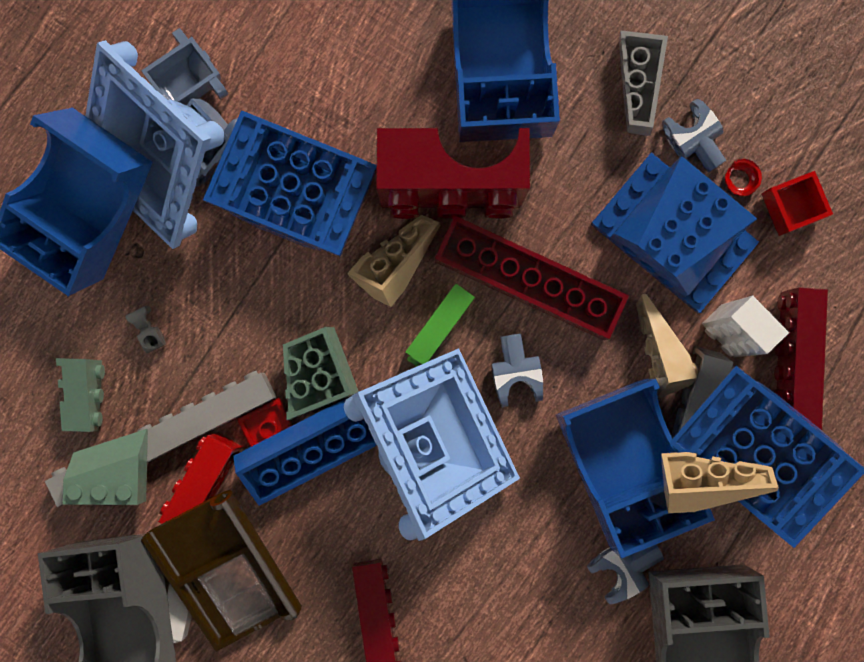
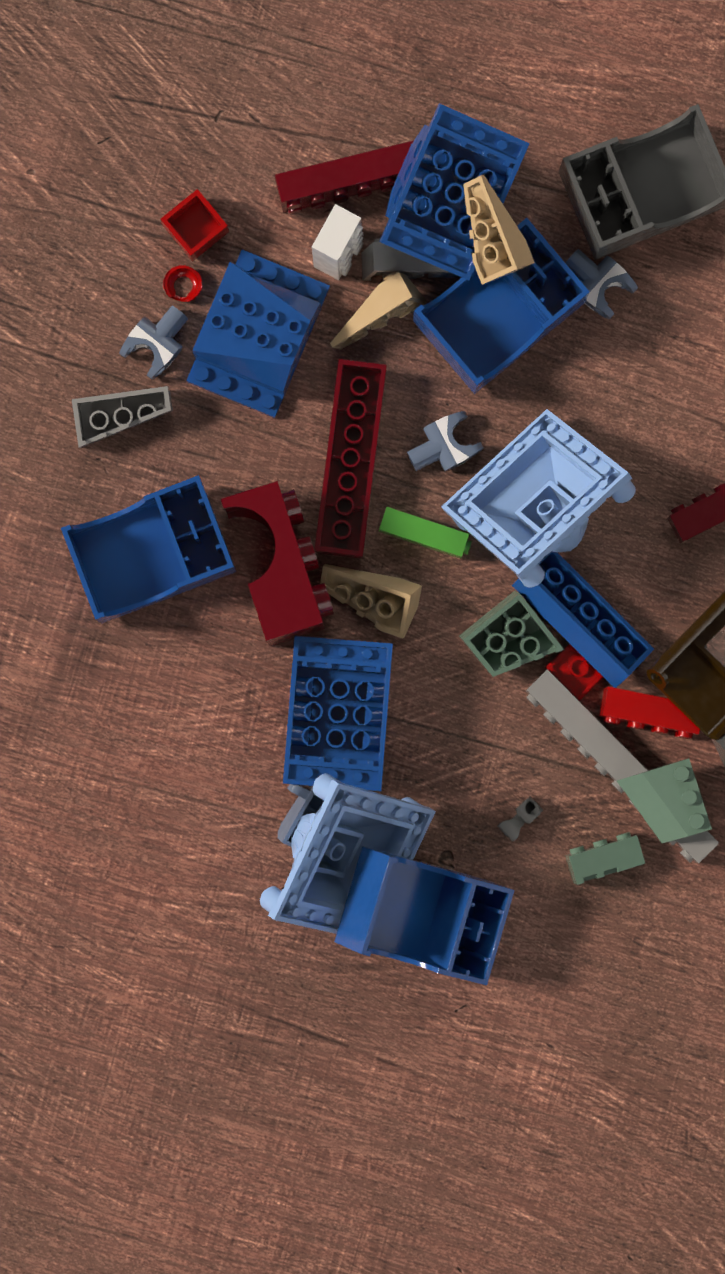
camera: 105 degrees left, 0 degrees up
(184, 72) = (255, 861): sand blue piece -> none

